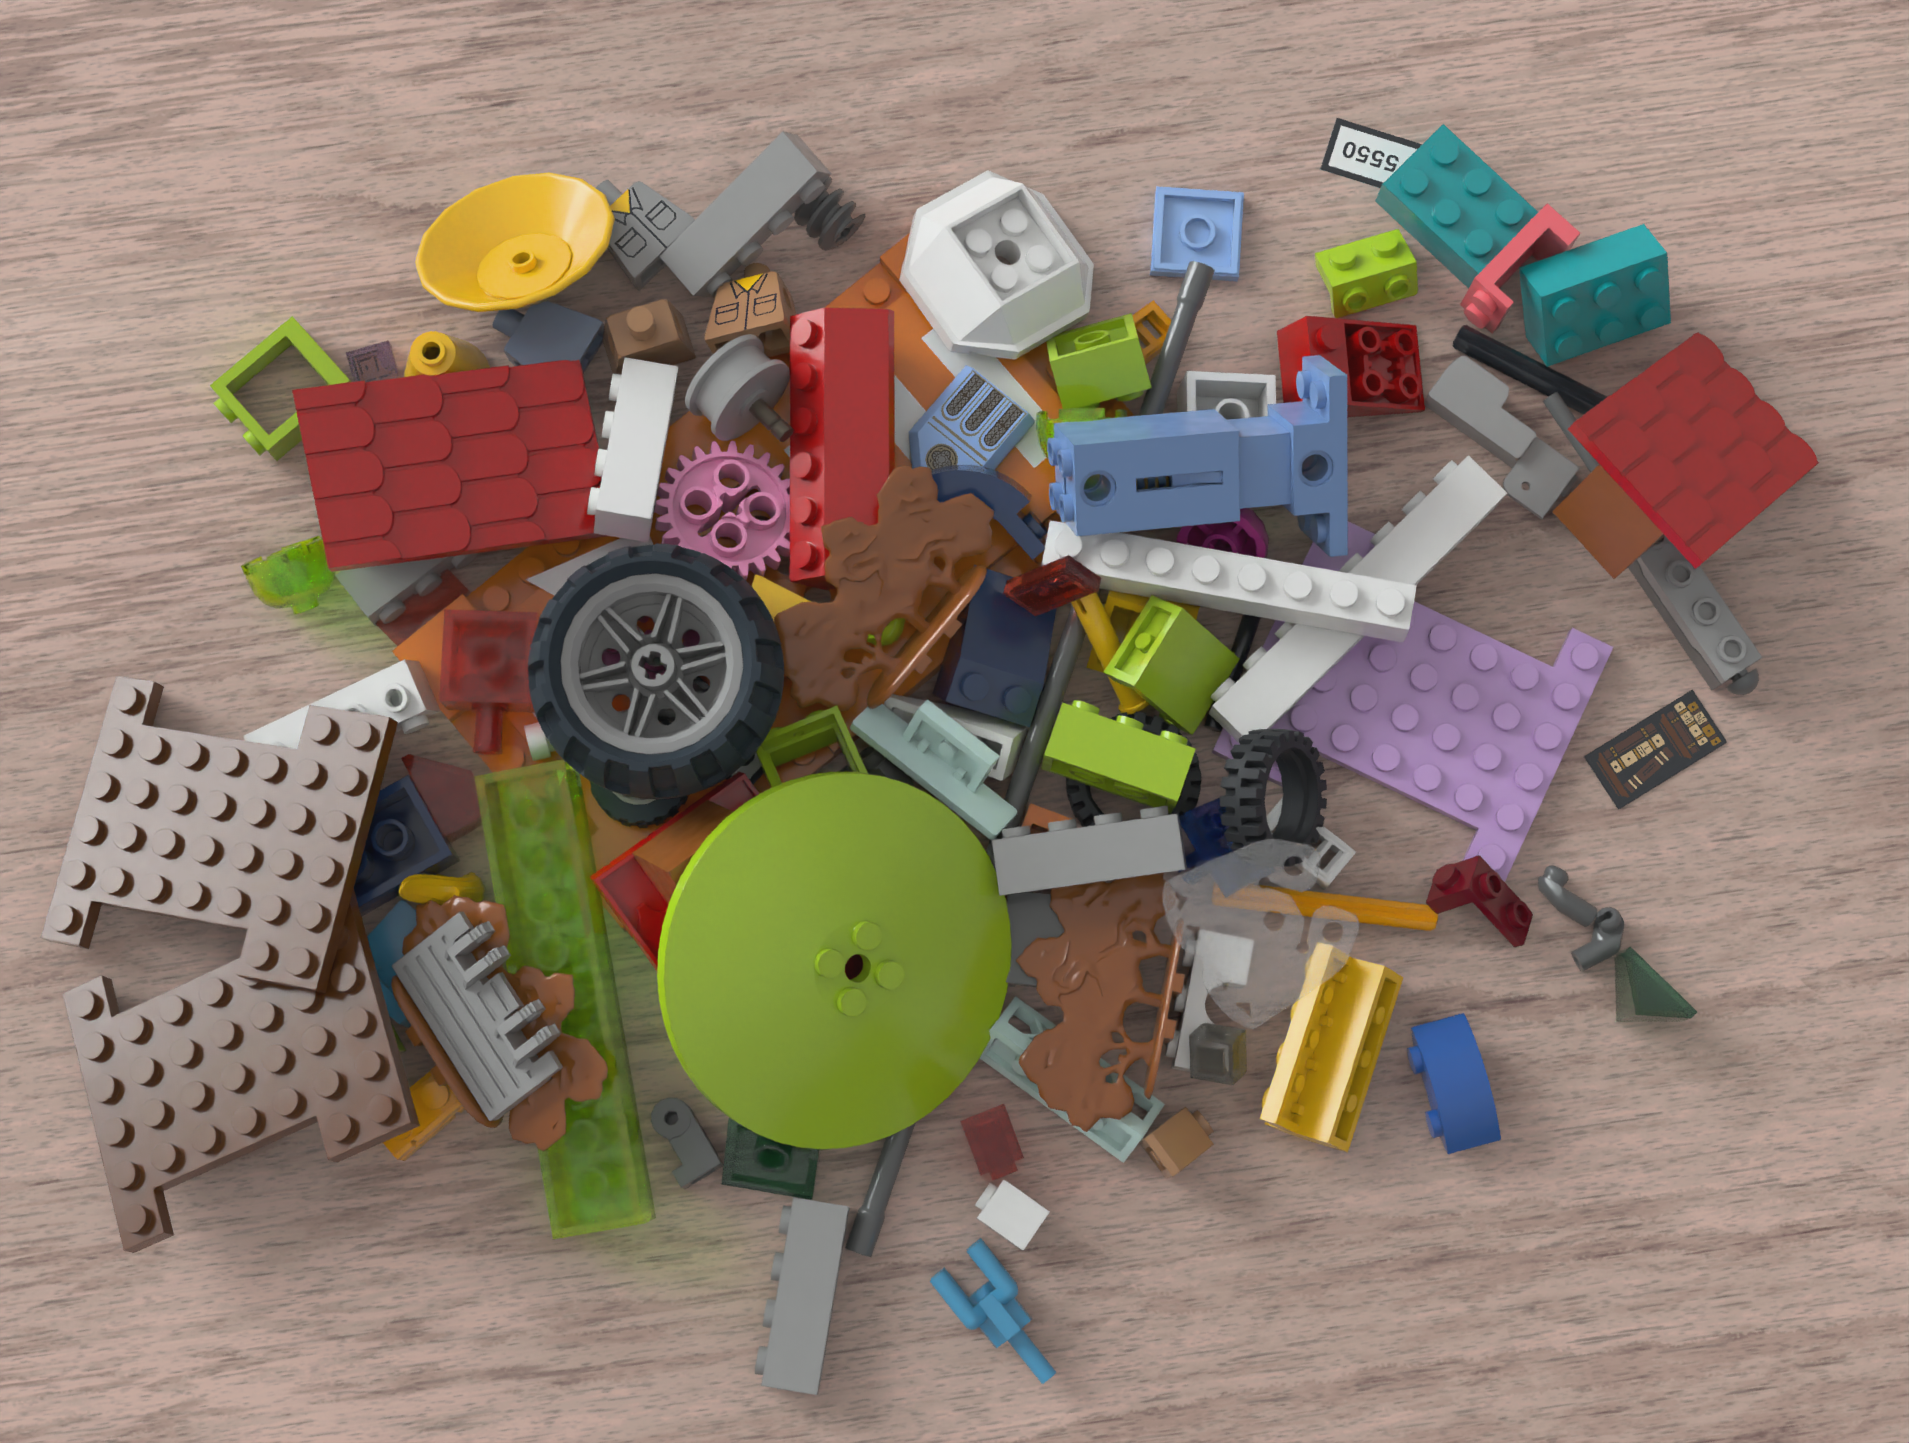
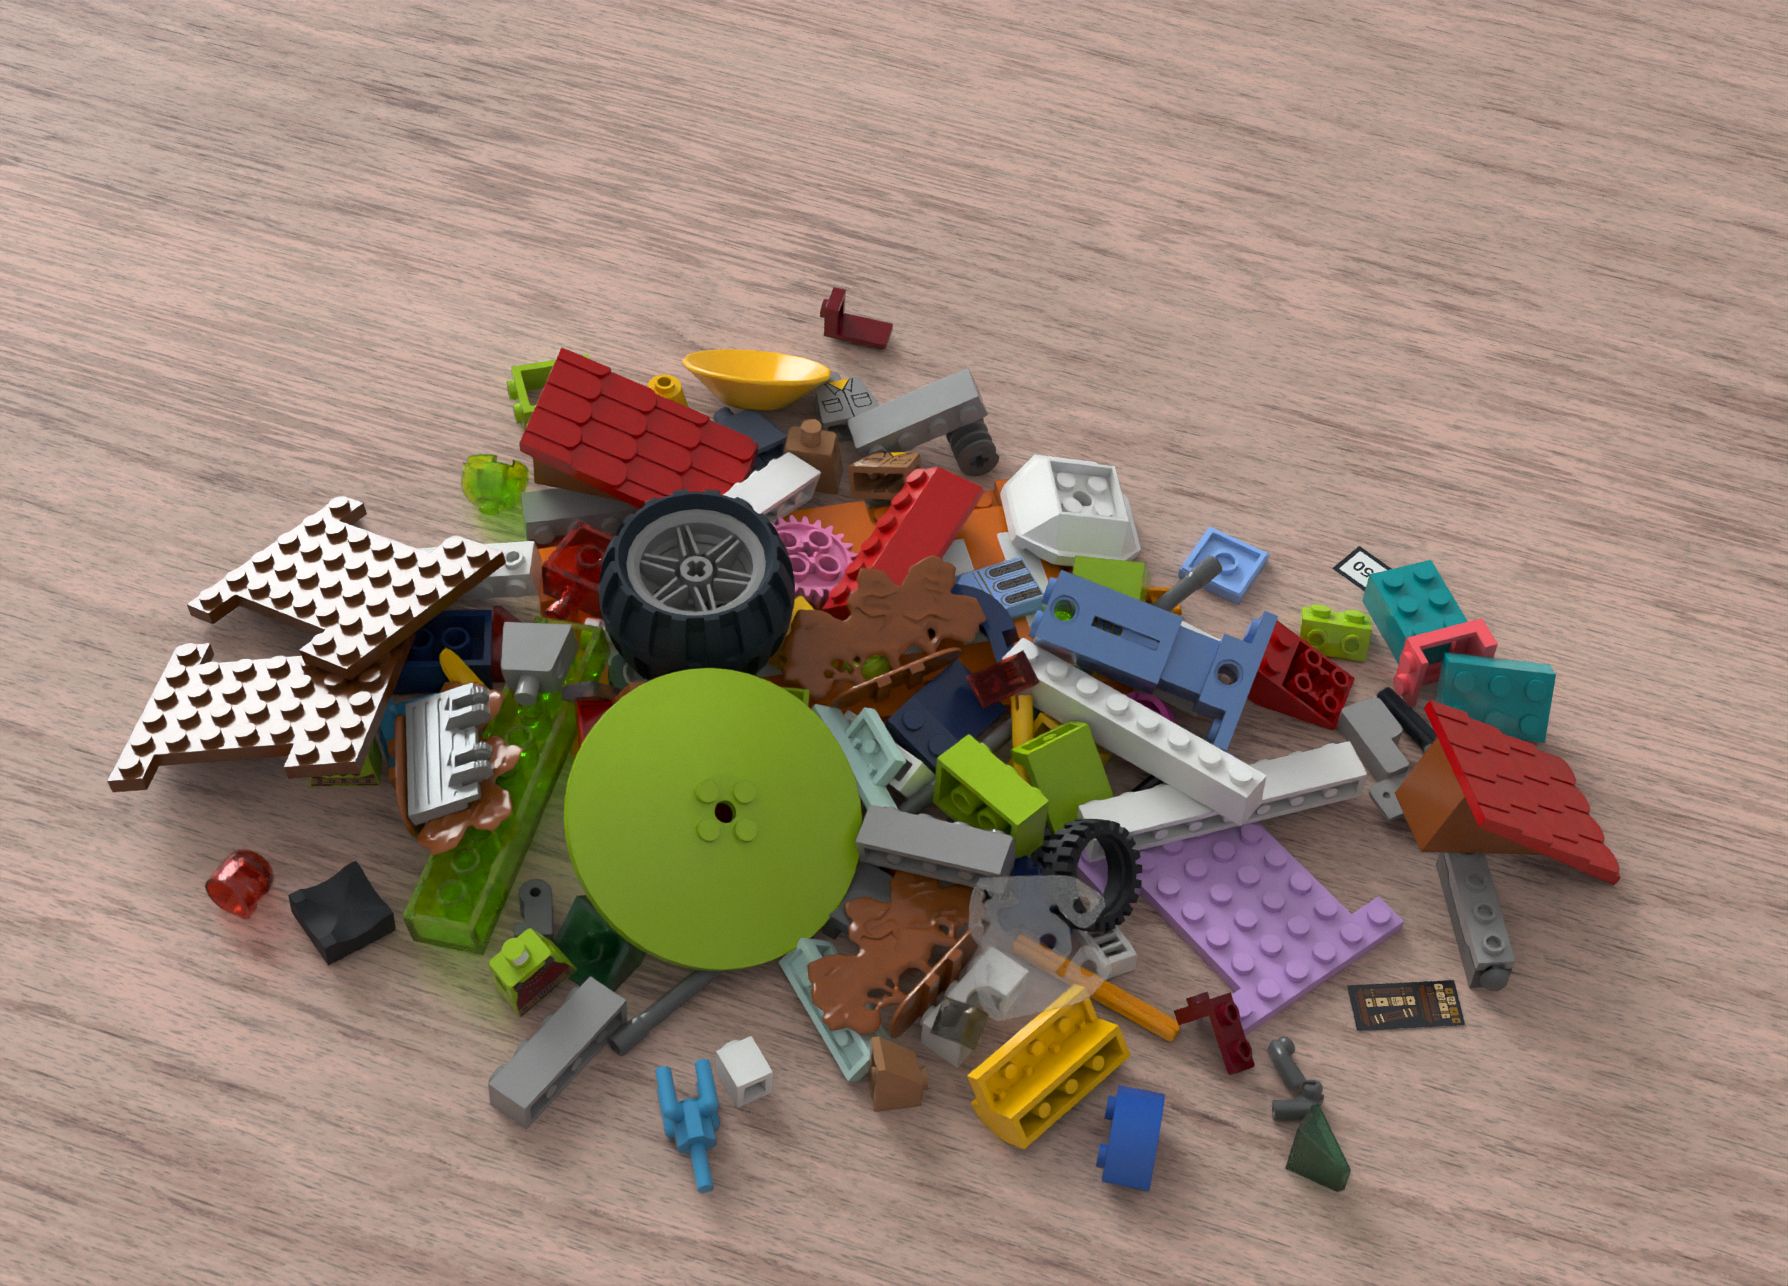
camera: 25 degrees right, 30 degrees down
(325, 1275) = (229, 882): none -> clear red helmet
(434, 1109) = (363, 815): light orange brick -> none
(474, 1250) = (342, 913): none -> black brick
(516, 850) = (536, 658): none -> light grey torso
(584, 86) = (852, 327): none -> dark red bracket
(609, 853) = (589, 692): none -> tile
(724, 1223) = (528, 970): none -> lime torso
(740, 390) = (853, 490): light grey wheel -> none
(992, 1142) = (758, 1005): clear red slope -> none

